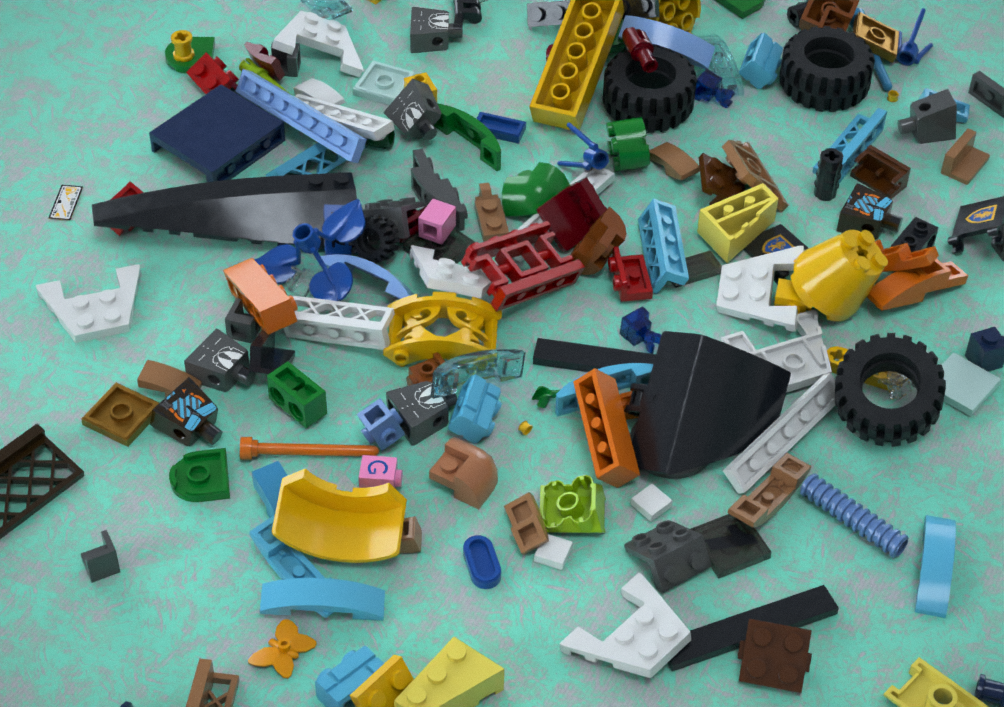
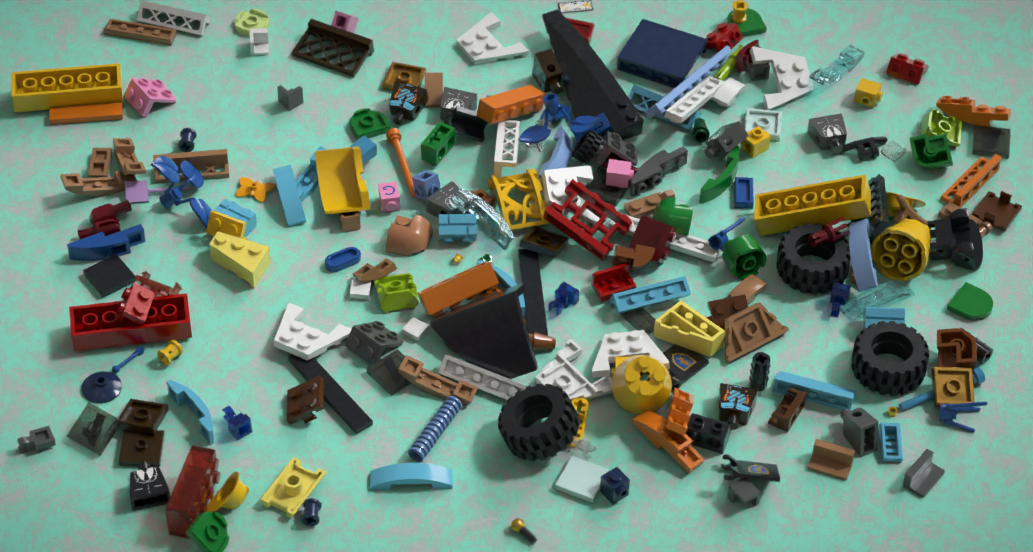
camera: 75 degrees right, 0 degrees up
(205, 248) = (547, 72): none -> dark brown torso
(531, 326) = (544, 242): none -> dark brown plate

